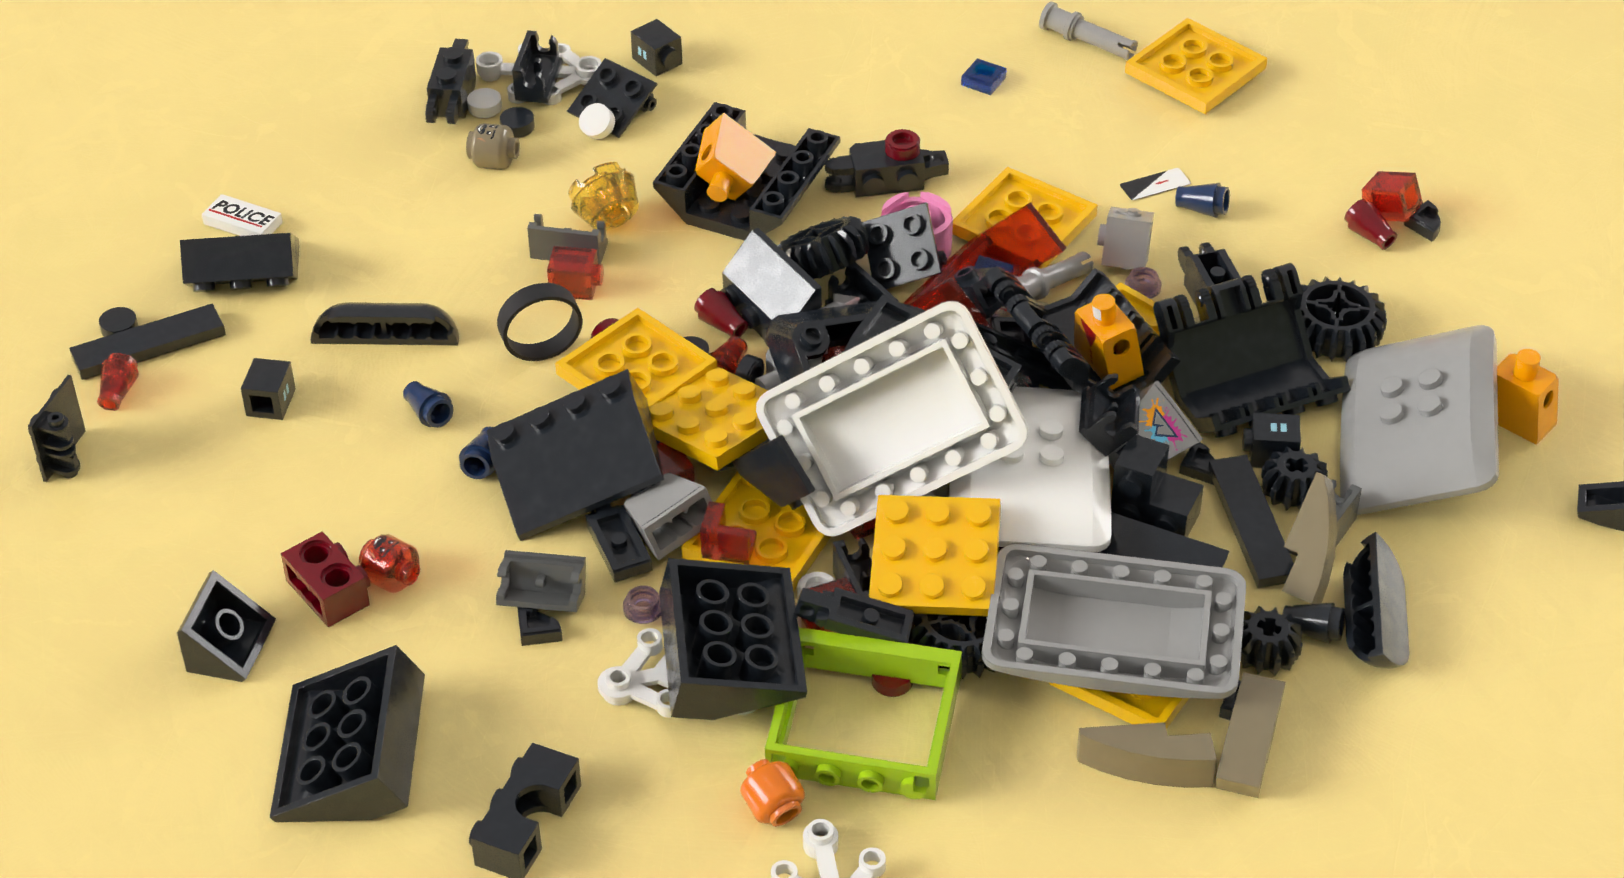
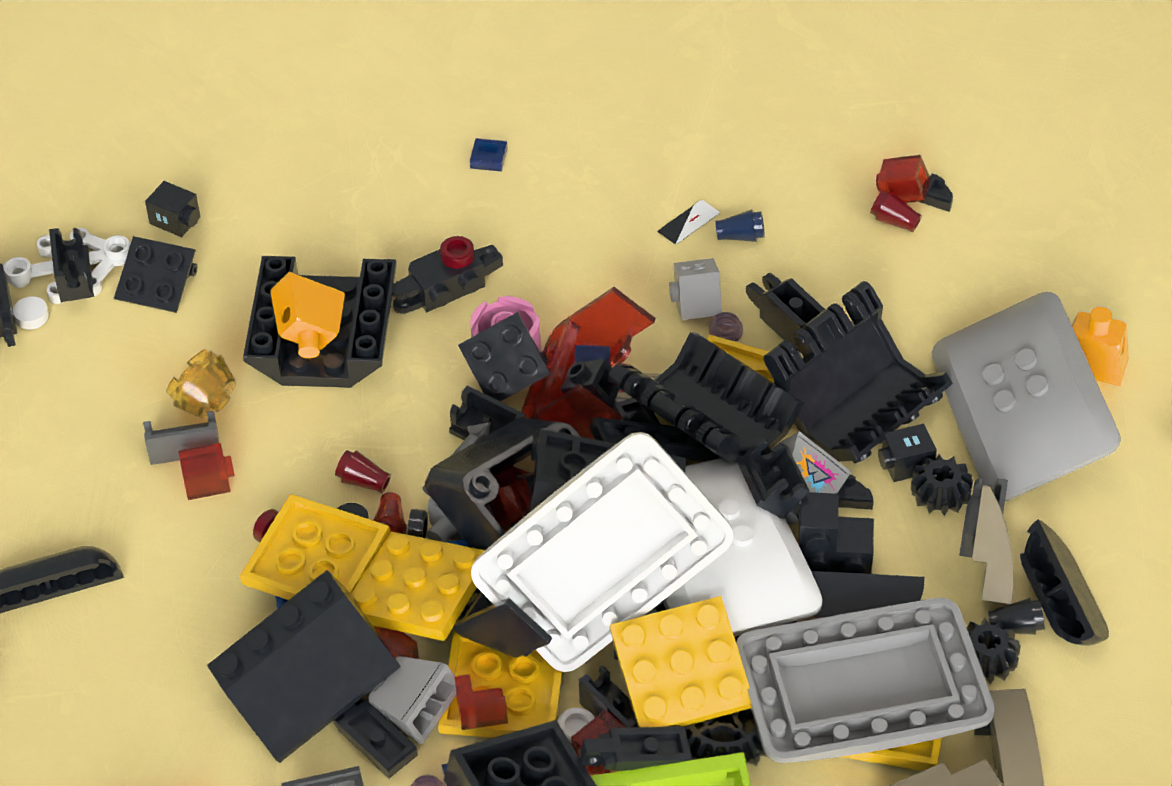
camera: 20 degrees left, 5 degrees up
(430, 405) = (130, 651): dark blue cone -> none
(476, 457) = (204, 691): dark blue cone -> none
(492, 146) = (63, 358): dark tan head -> none
(519, 120) = (72, 324): black tile -> none
(527, 297) = (188, 521): black tyre -> none
(597, 121) = (151, 303): white tile -> none
(767, 283) = (402, 436): slope -> none
(828, 246) = (431, 382): black gear -> none
(1011, 191) = (582, 275): yellow plate -> none
(1040, 281) = (640, 353): light grey pin -> none
(1074, 26) = (549, 81): light grey pin -> none
(1100, 332) = (737, 404): light orange torso -> none
(1196, 65) = (674, 92): yellow plate -> none
(1251, 520) = (922, 537): black tile -> none
(1341, 318) = (915, 313): black gear -> none

